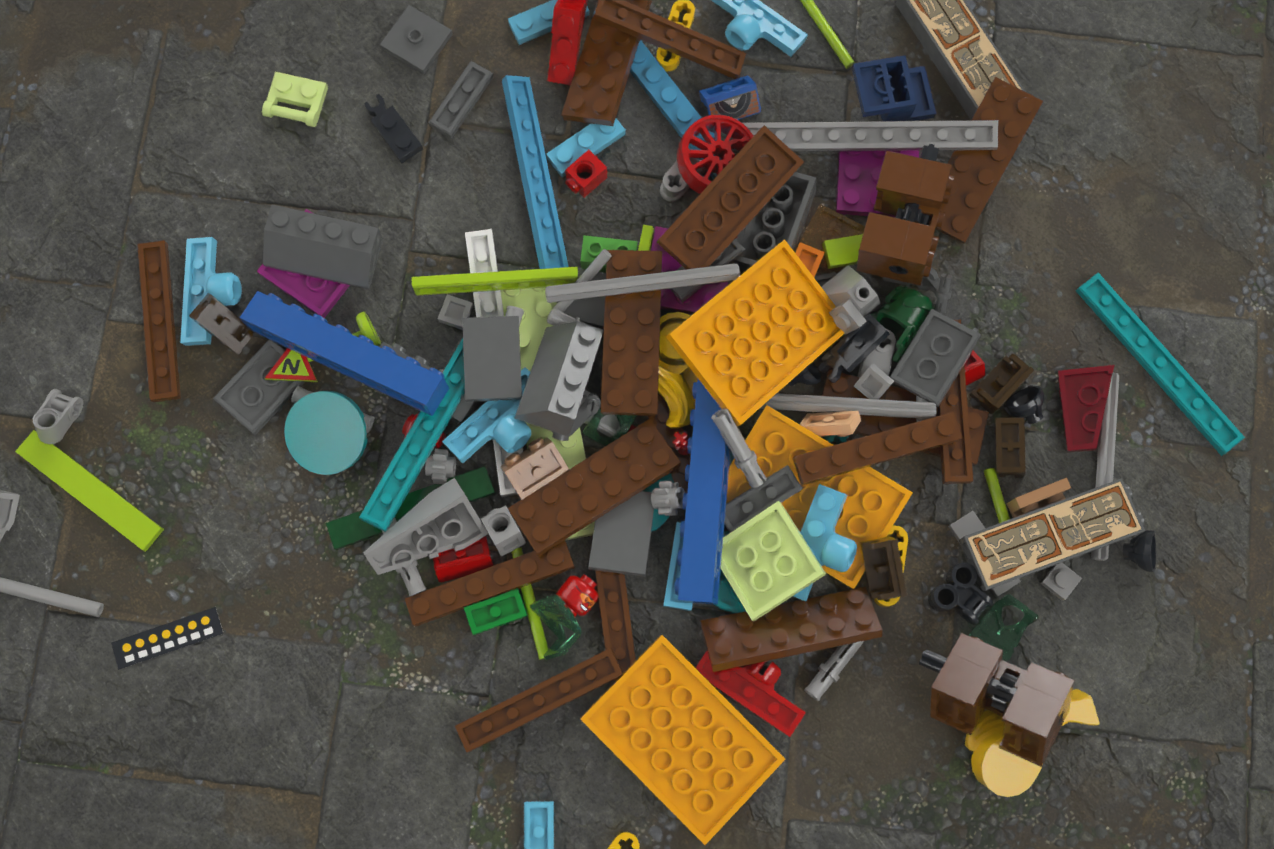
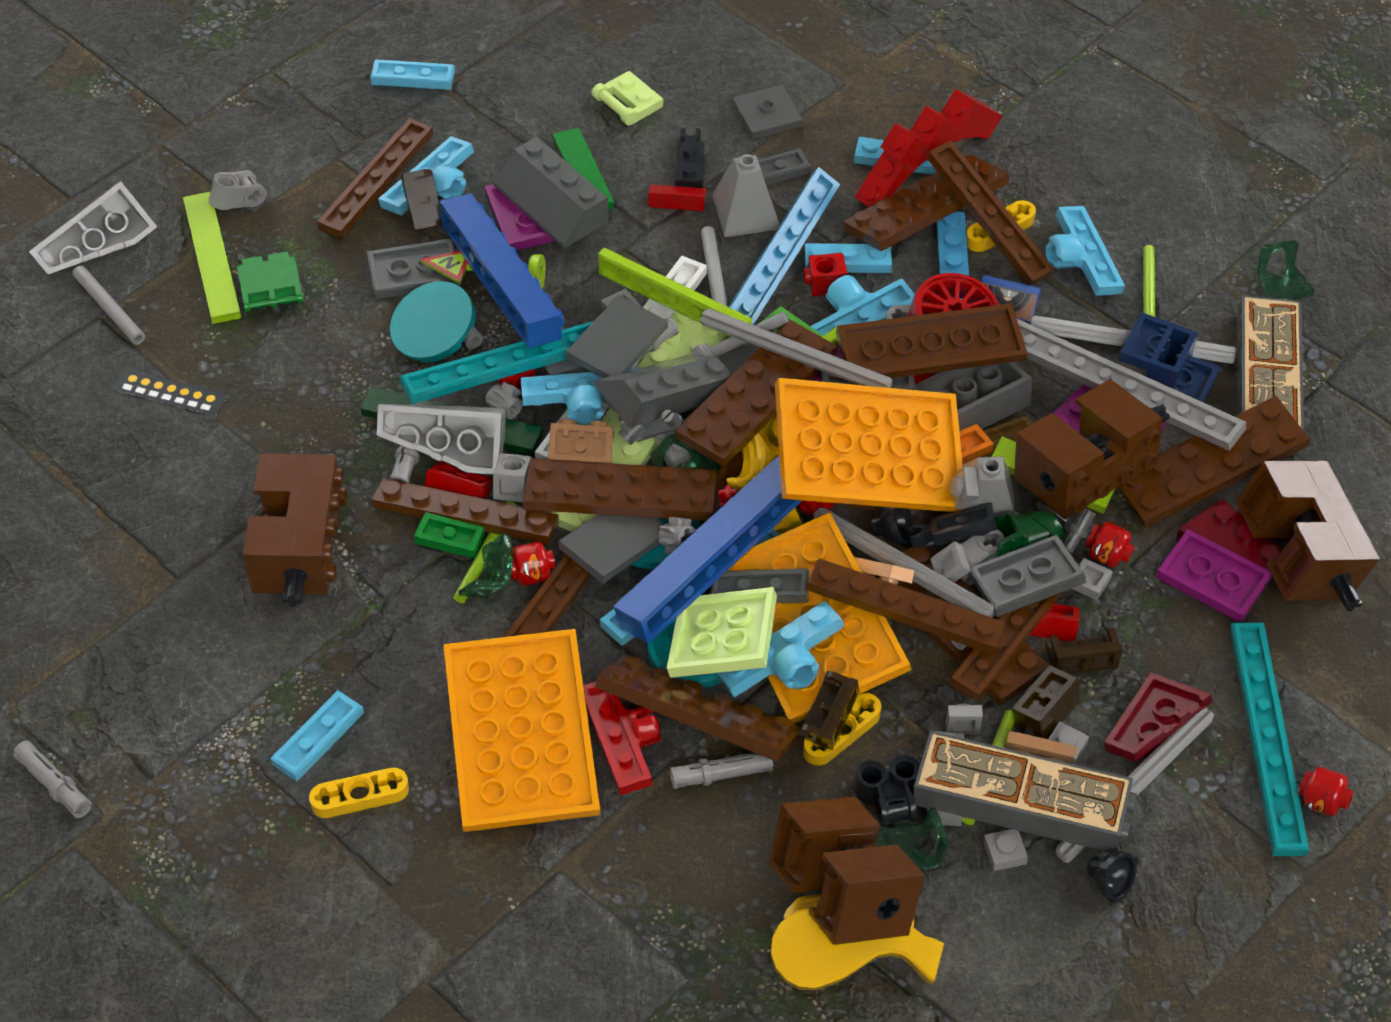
camera: 40 degrees right, 25 degrees down
(97, 193) = (412, 74): none -> medium azure tile
(160, 483) = (269, 281): none -> green plate
(314, 194) = (576, 153): none -> green tile
(405, 714) = (292, 543): none -> reddish brown piece
(412, 173) = (677, 197): none -> red slope
(473, 148) = (744, 199): none -> light grey slope
(497, 227) = (713, 265): none -> light grey piece
(539, 700) = (422, 617): reddish brown plate -> none
(635, 191) = (858, 306): none -> medium azure plate
(743, 455) = (772, 520): light grey pin -> none
(832, 84) = (1118, 337): none -> light grey axle
(964, 280) = (1109, 544): none -> red head
(965, 499) = (964, 719): none -> light grey plate
(967, 314) = (1096, 579): none -> light grey plate
(1026, 404) = (1094, 681): black piece -> none
(1030, 211) = (1228, 529): none -> dark red wing
(1040, 467) = (1071, 736): none -> light grey plate
(1041, 255) = (1214, 575): none -> magenta plate
(1113, 175) = (1327, 544): none -> reddish brown piece
(1229, 385) = (1326, 791): none -> red head

